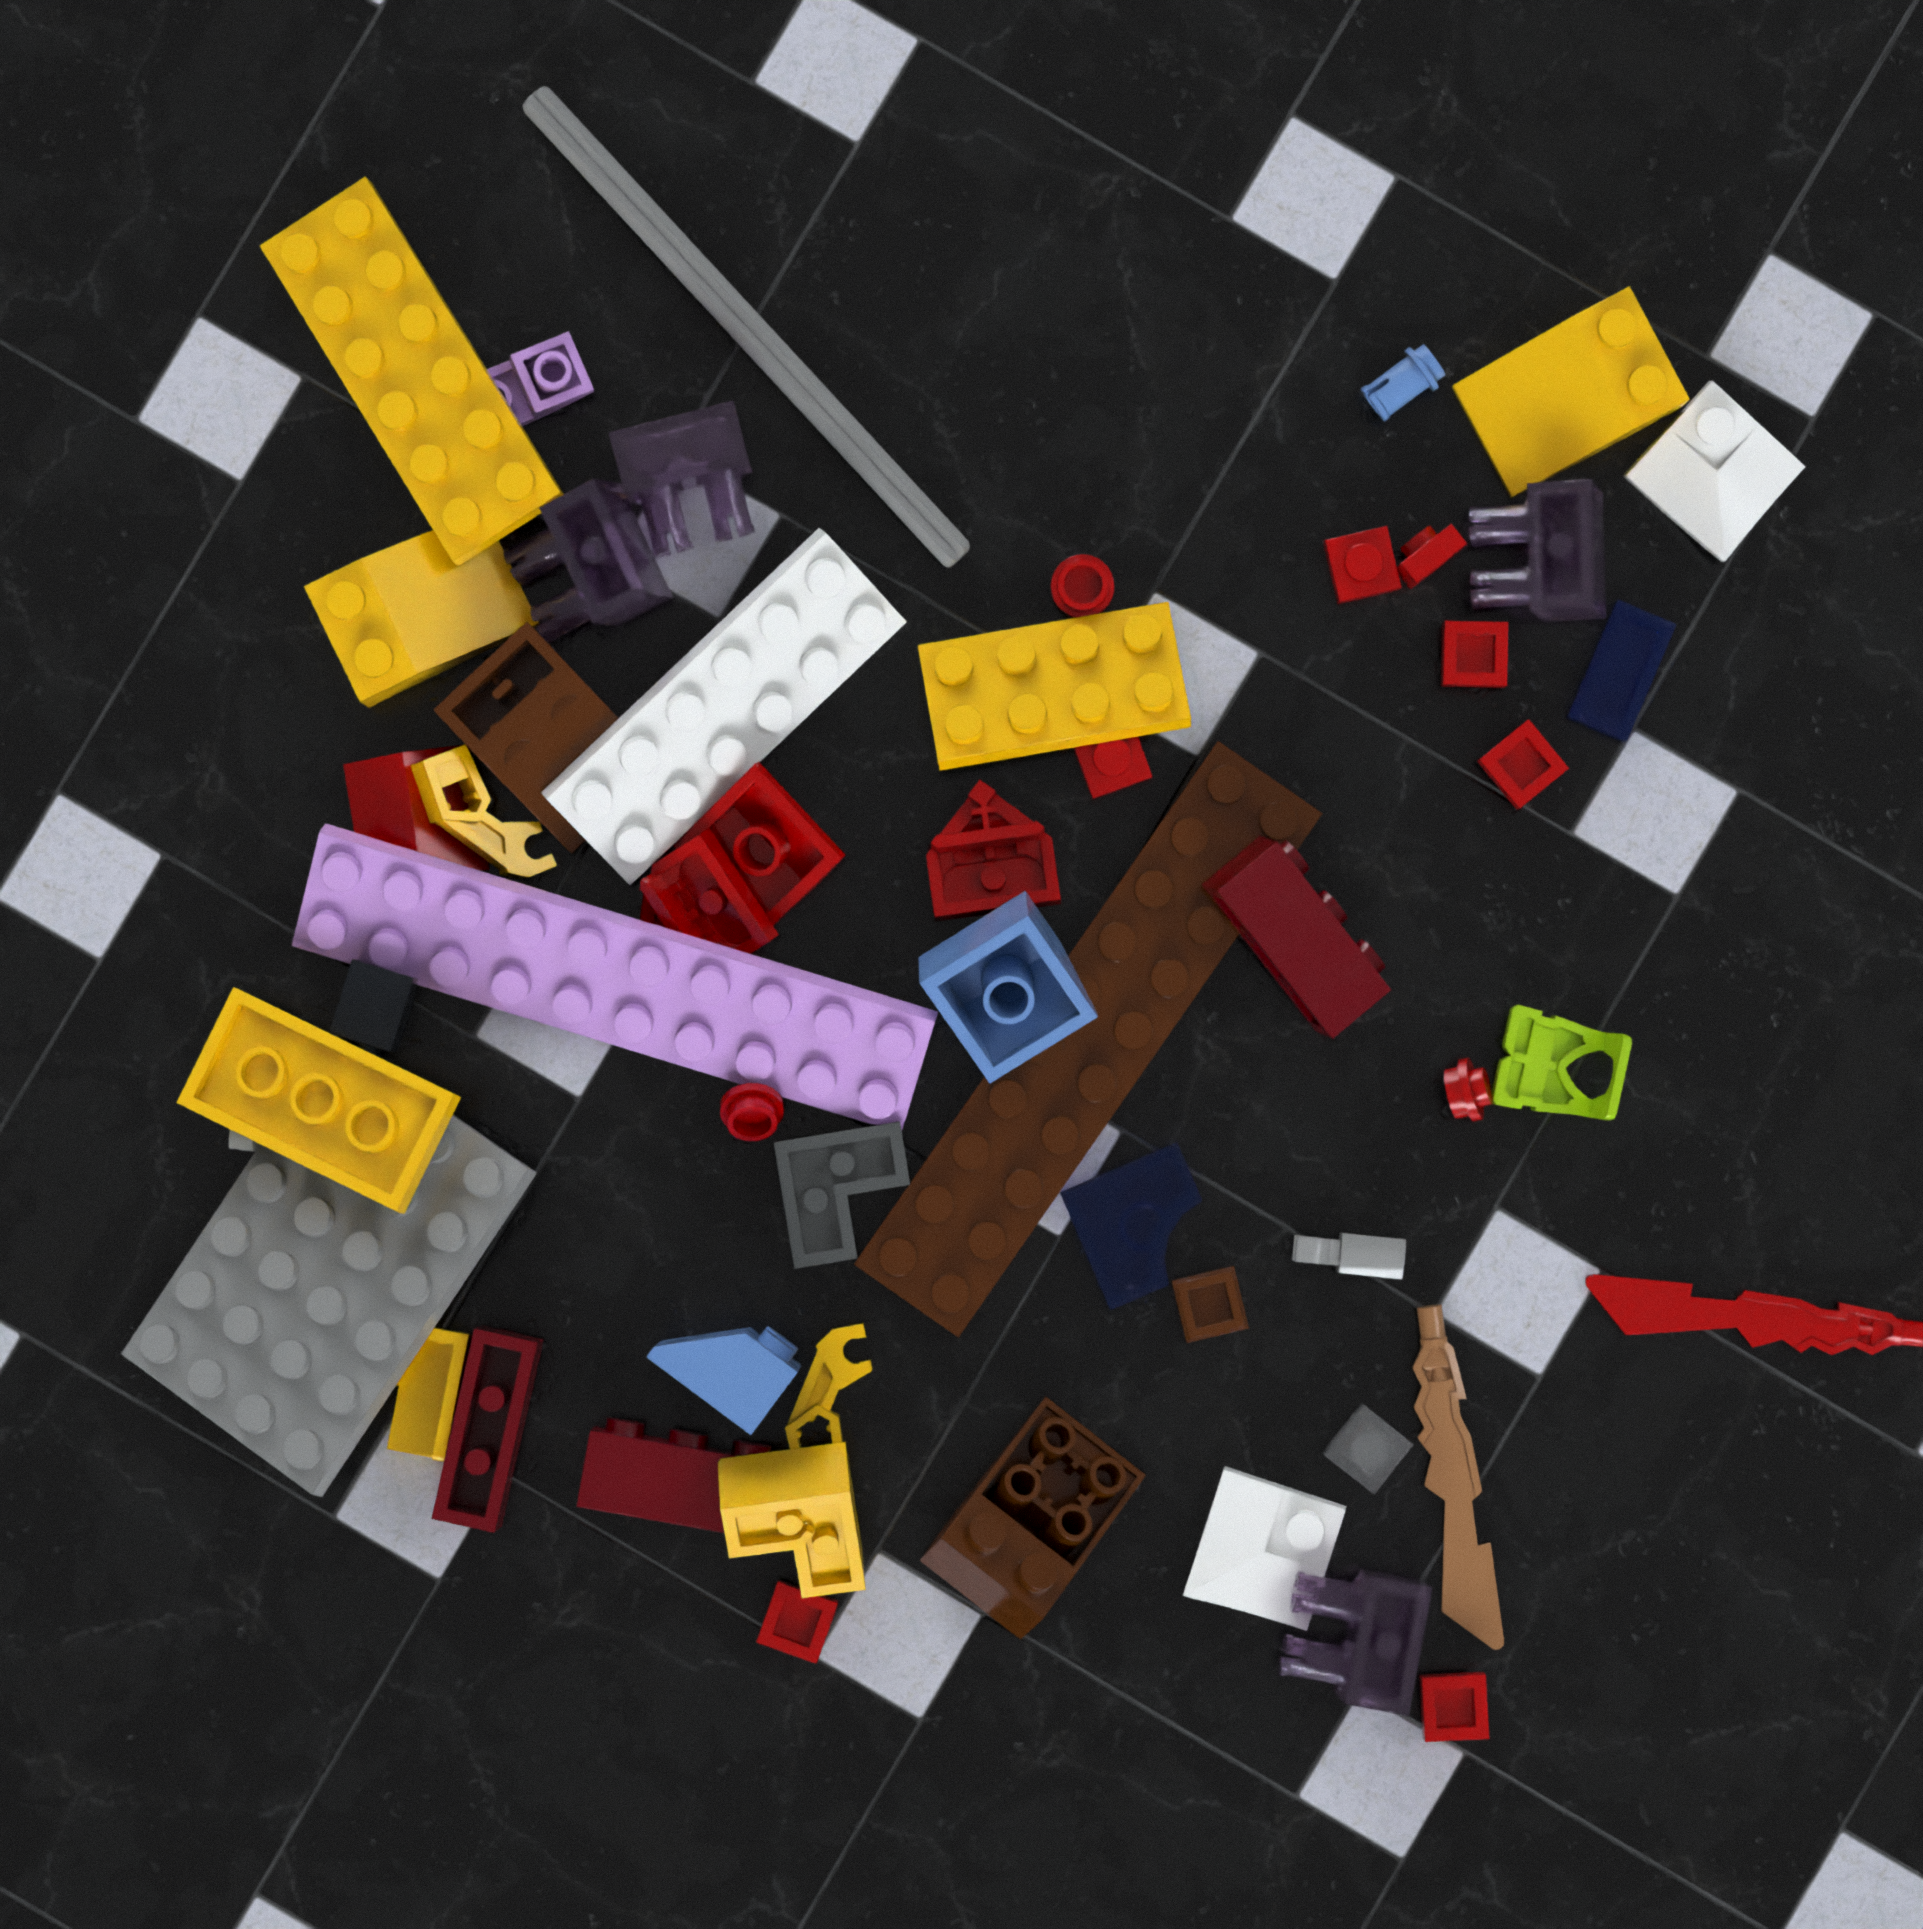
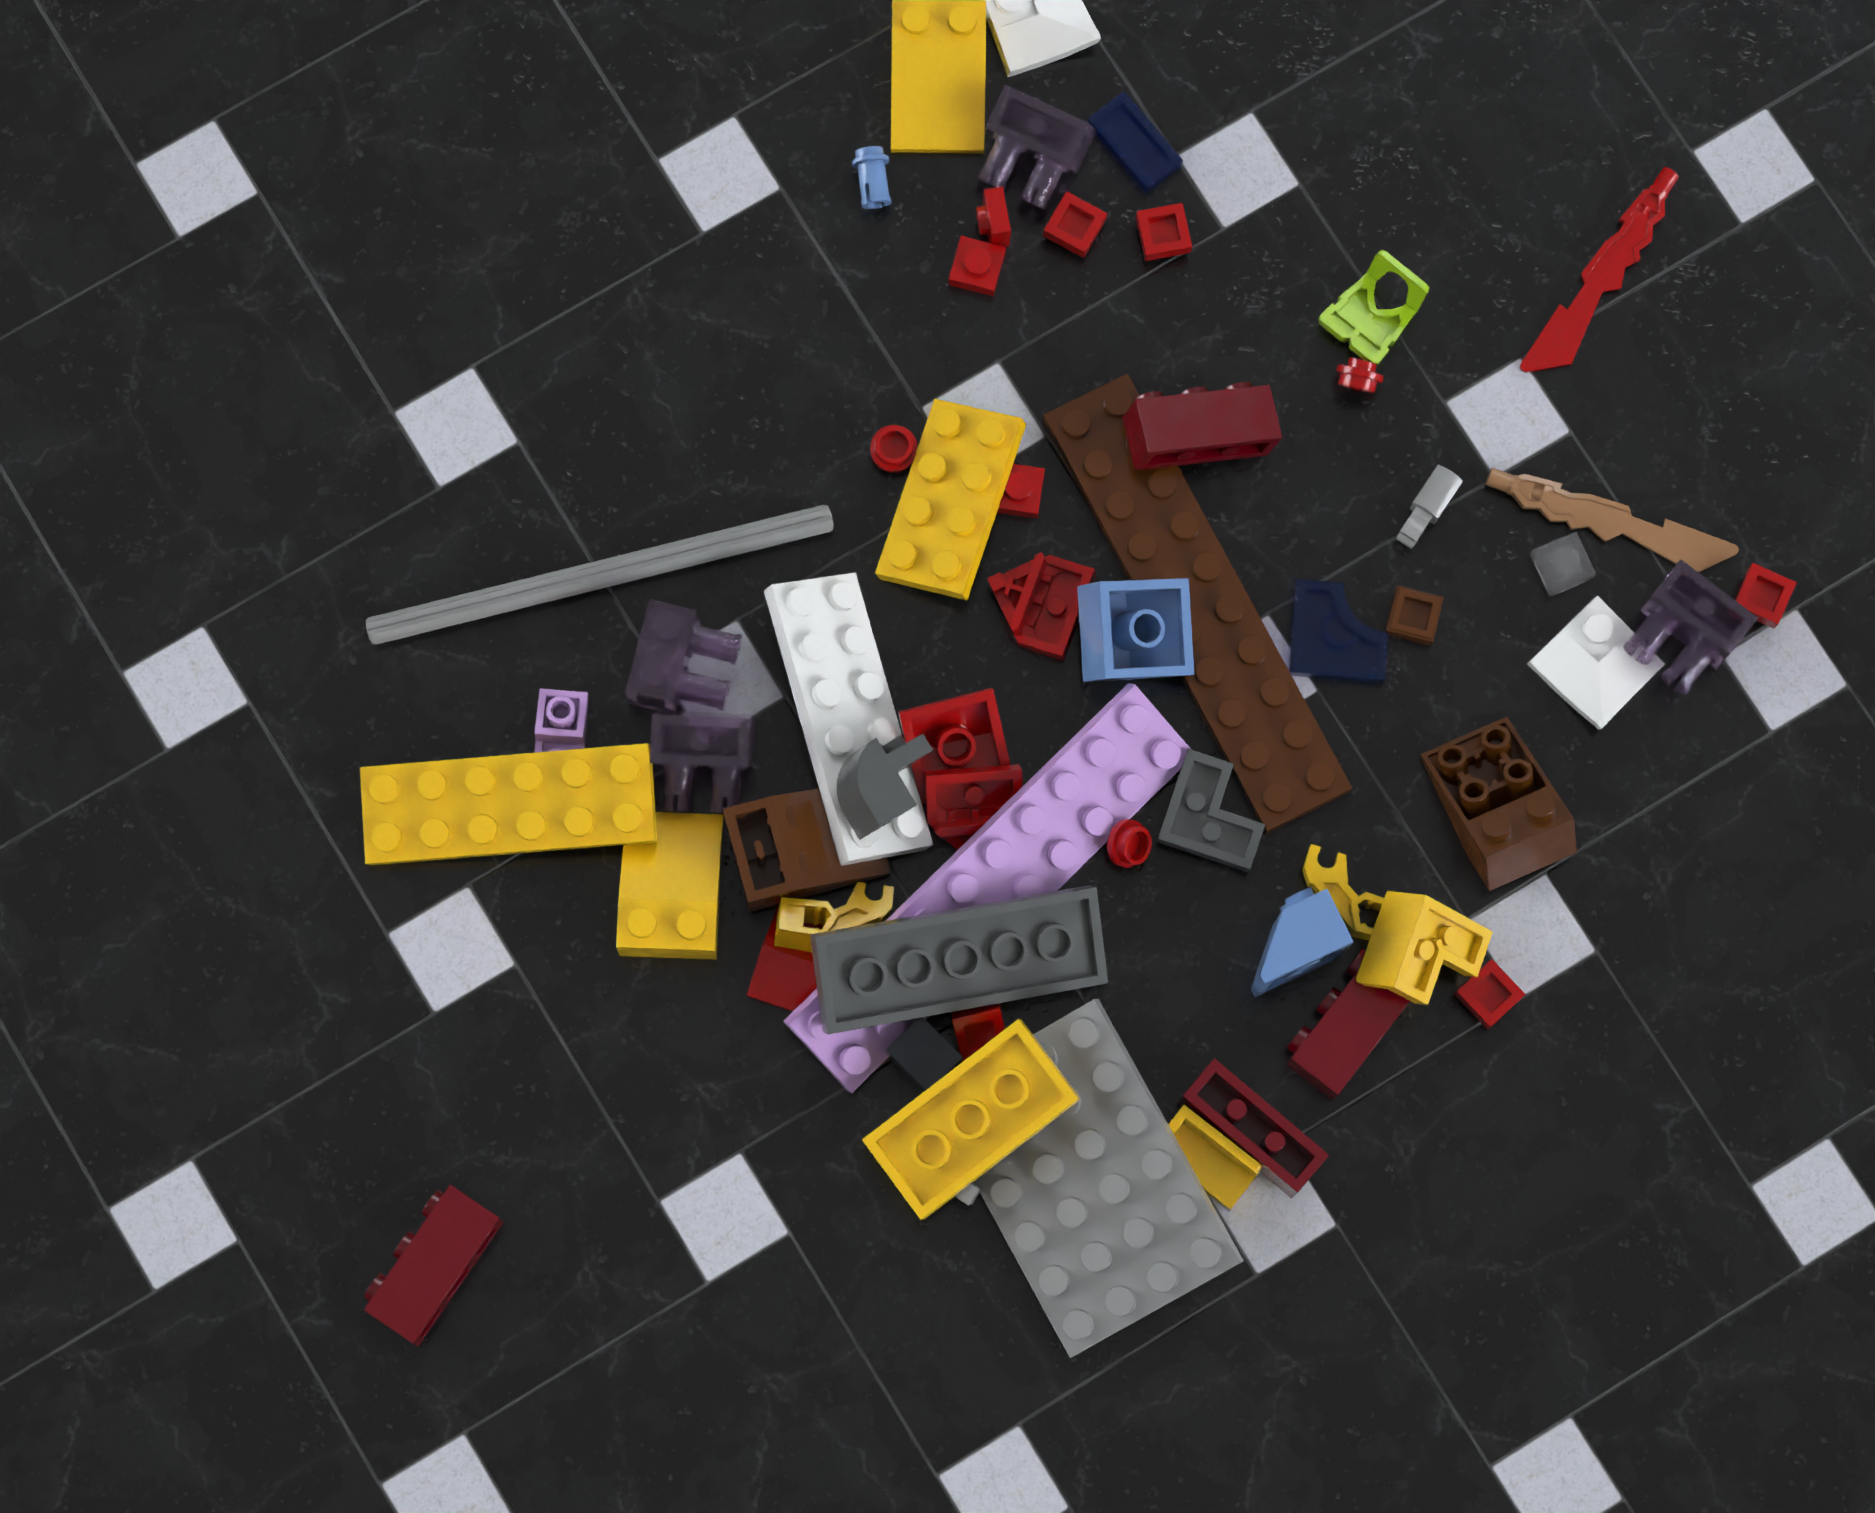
camera: 65 degrees left, 10 degrees down
(439, 1052) = (977, 1027): none -> red plate
(499, 987) = (958, 959): none -> dark grey plate
(641, 777) = (870, 783): none -> dark grey brick

